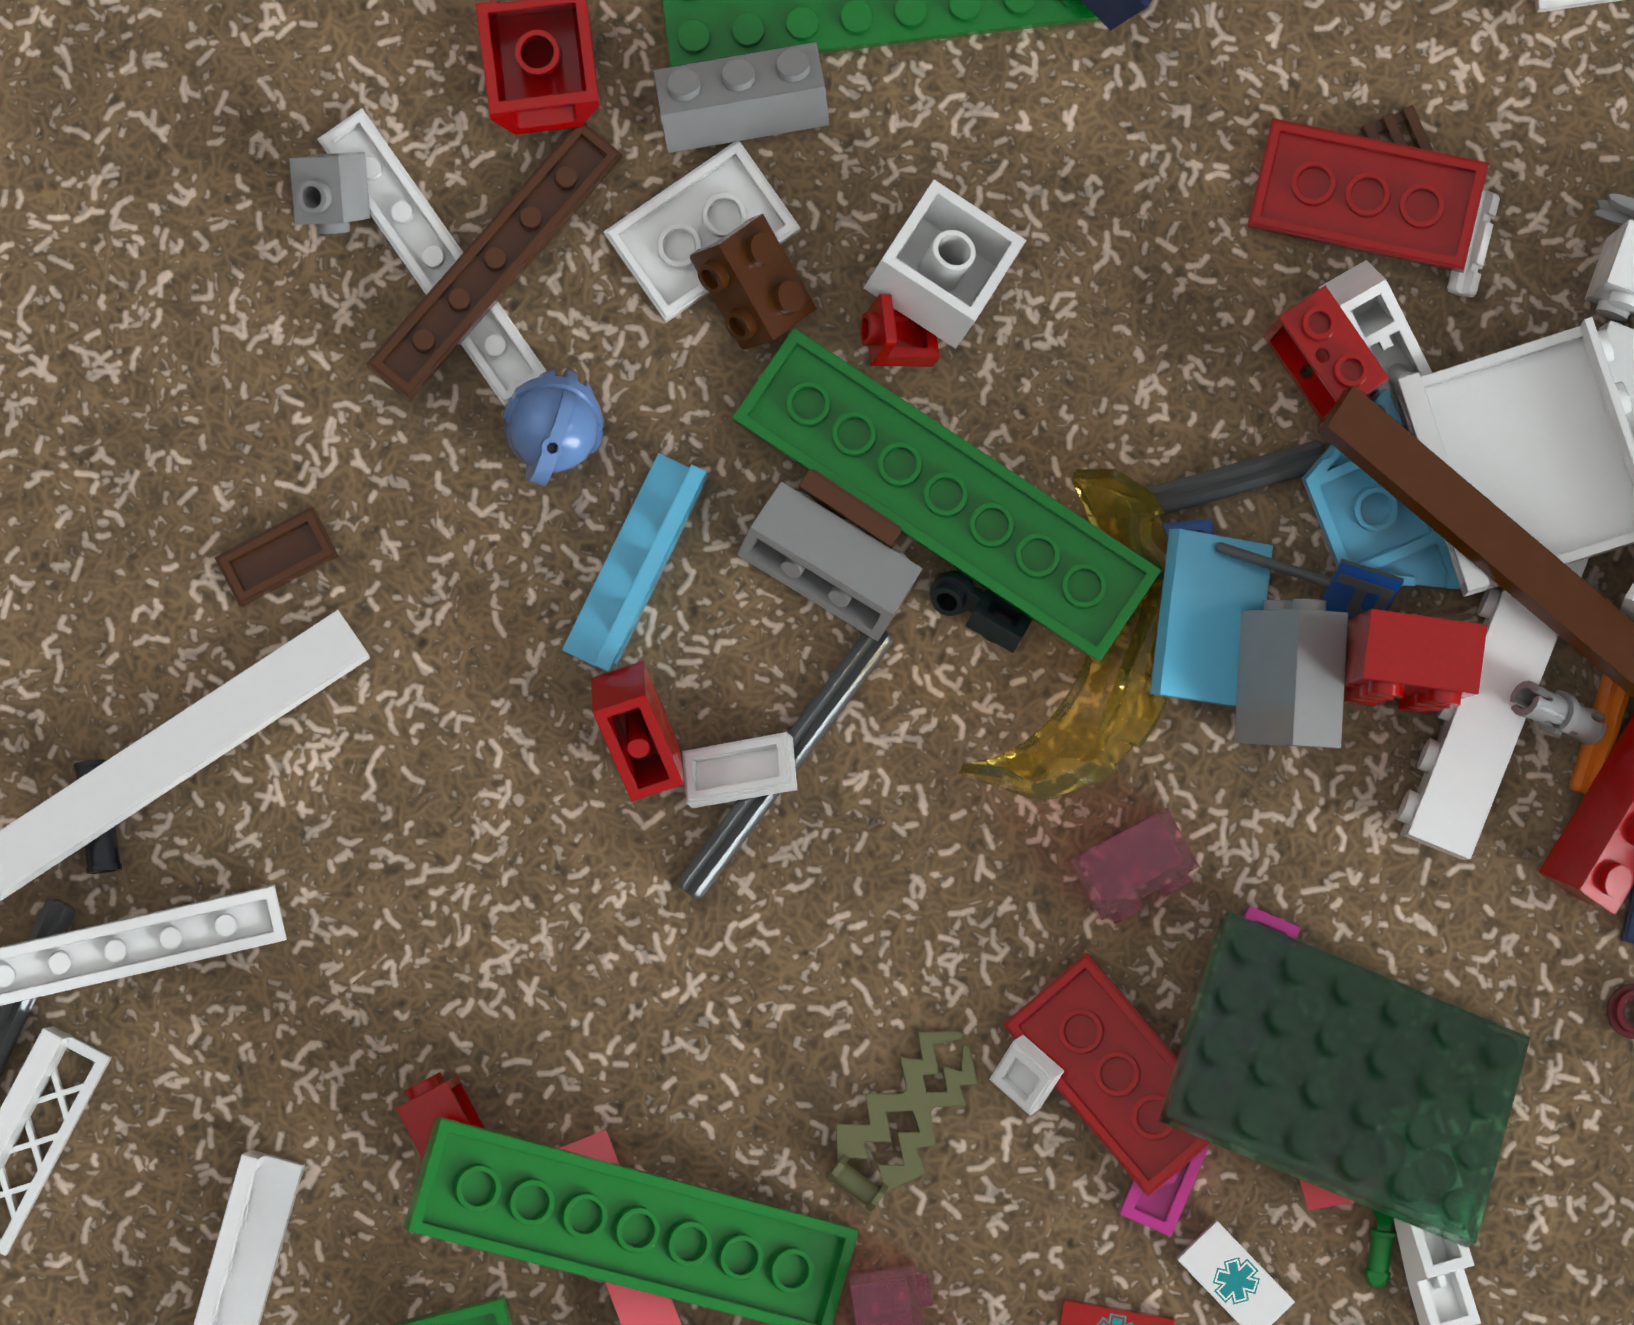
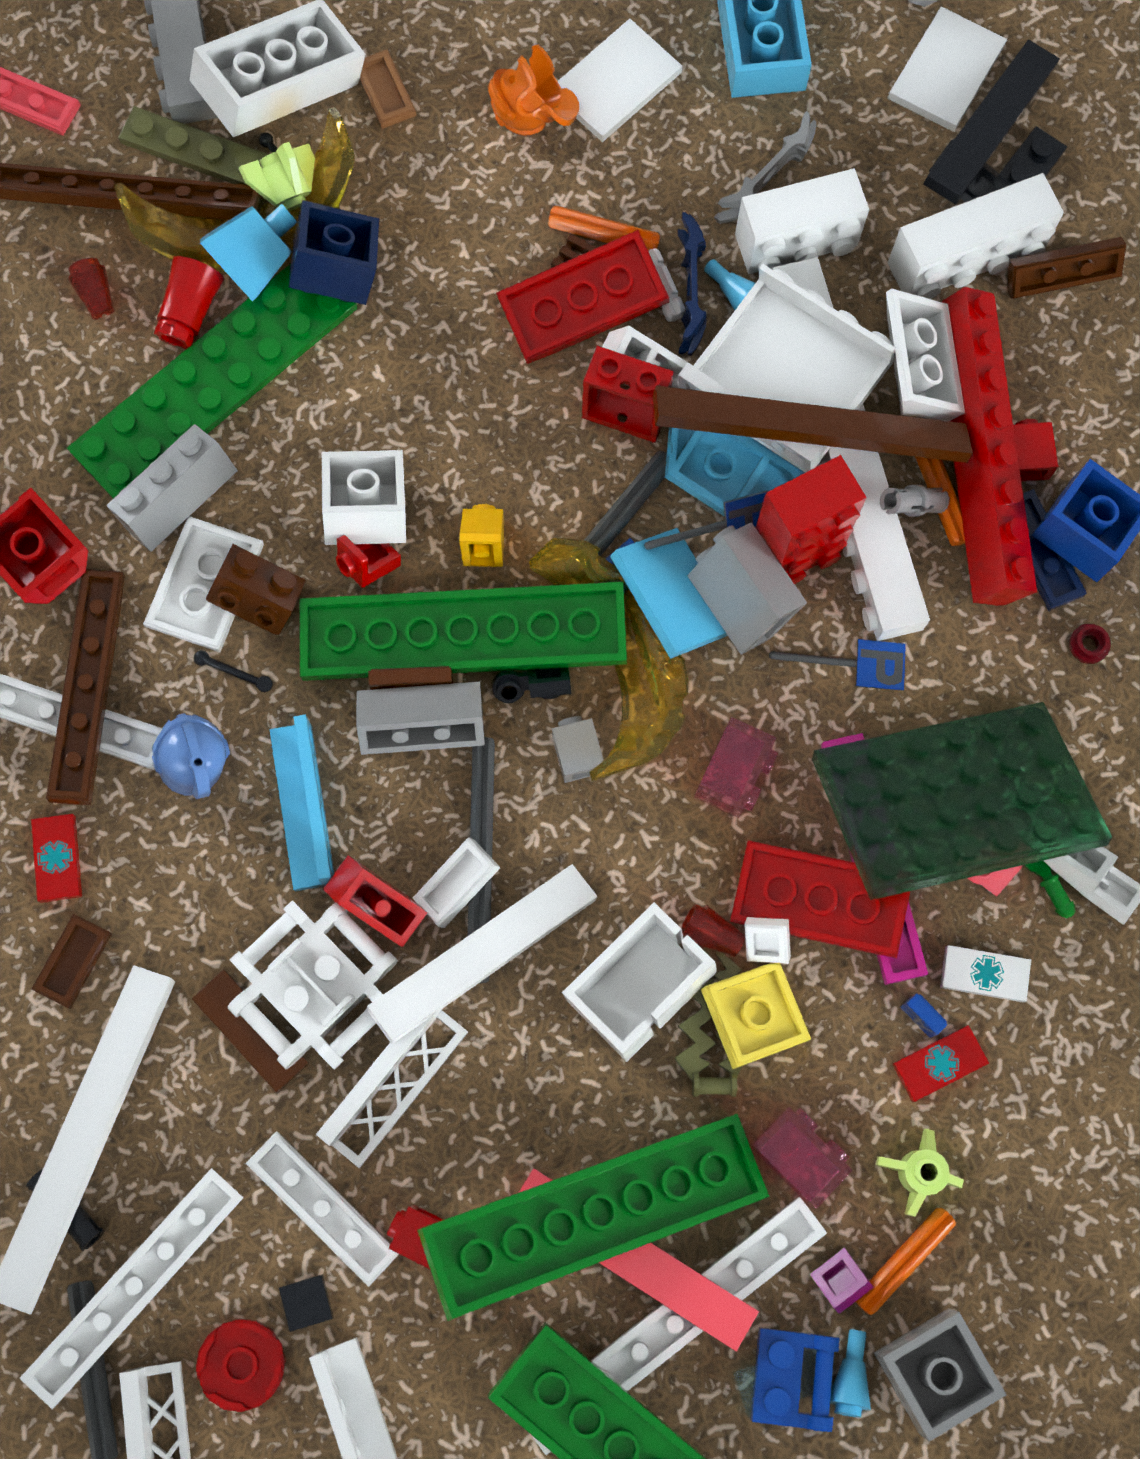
camera: 40 degrees left, 10 degrees down
(184, 1094) = (252, 1355): none -> red tile
(277, 1093) = (306, 1303): none -> black tile
(335, 431) = (56, 858): none -> red tile
(359, 1008) = (322, 1208): none -> white tile
(412, 769) = (214, 1002): none -> reddish brown tile
(510, 770) = (311, 984): none -> white brick
(517, 913) = (373, 1082): none -> white fence
(688, 393) = (263, 683): none -> black hinge
(713, 868) = (481, 954): none -> white tile
(855, 1021) = (640, 981): none -> white piece
(955, 1143) = (755, 1014): none -> light yellow tile
(974, 1019) = (712, 930): none -> clear red cone
(976, 717) = (576, 747): none -> light grey brick
(1047, 400) = (482, 536): none -> yellow slope
(1133, 1275) = (924, 1015): none -> blue tile
(1379, 862) = (877, 663): none -> piece
(1453, 122) = (596, 227): none -> orange axle
(1475, 315) = (693, 318): none -> dark blue piece
(1553, 307) = (732, 285): none -> medium azure cone

